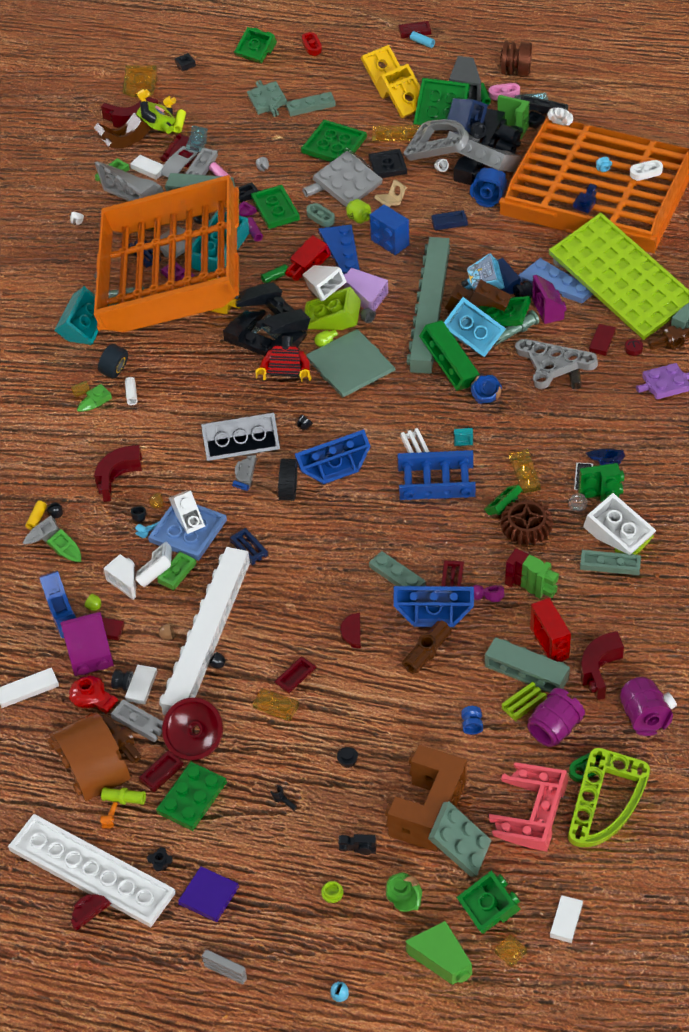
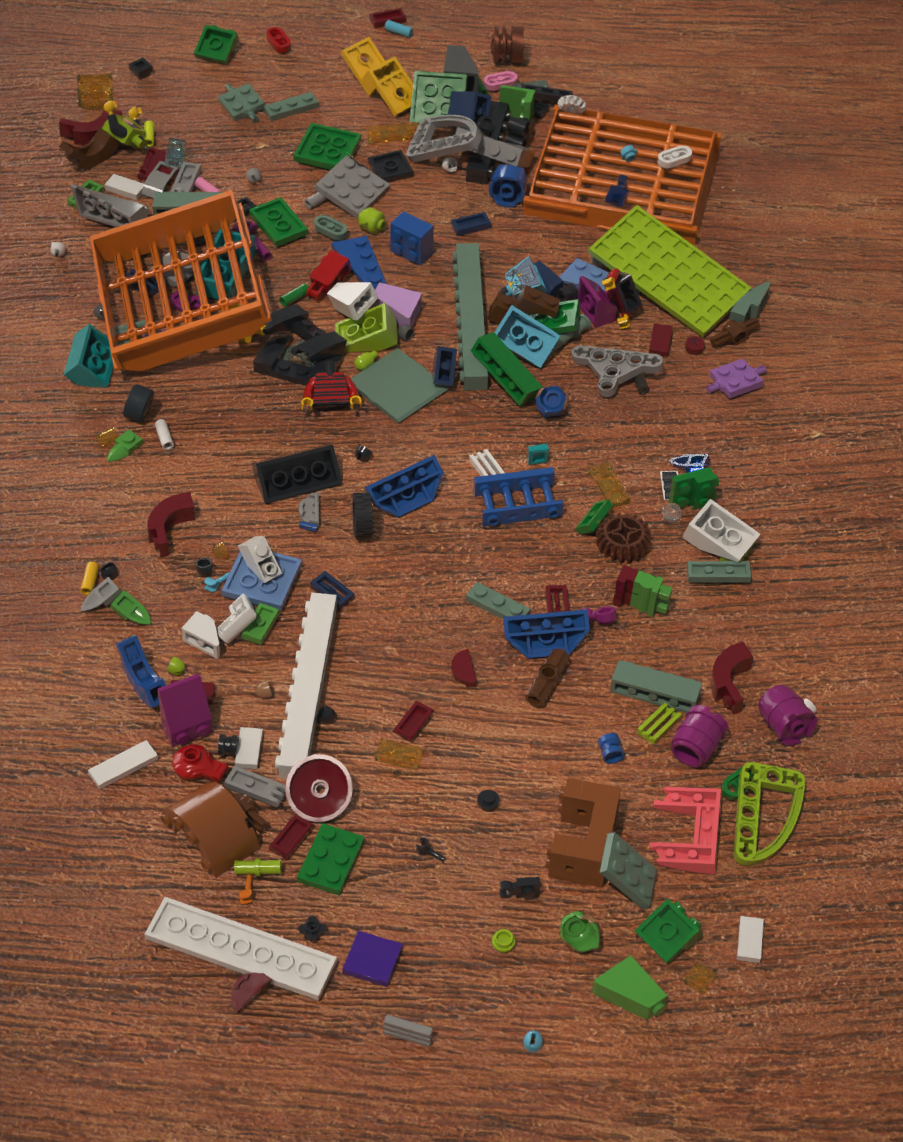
camera: 15 degrees left, 0 degrees up
(392, 198) = (404, 204): tan bracket -> none
(393, 348) = (444, 366): none -> dark blue slope
(550, 630) = (674, 647): red window -> none
(572, 294) = (623, 293): none -> torso

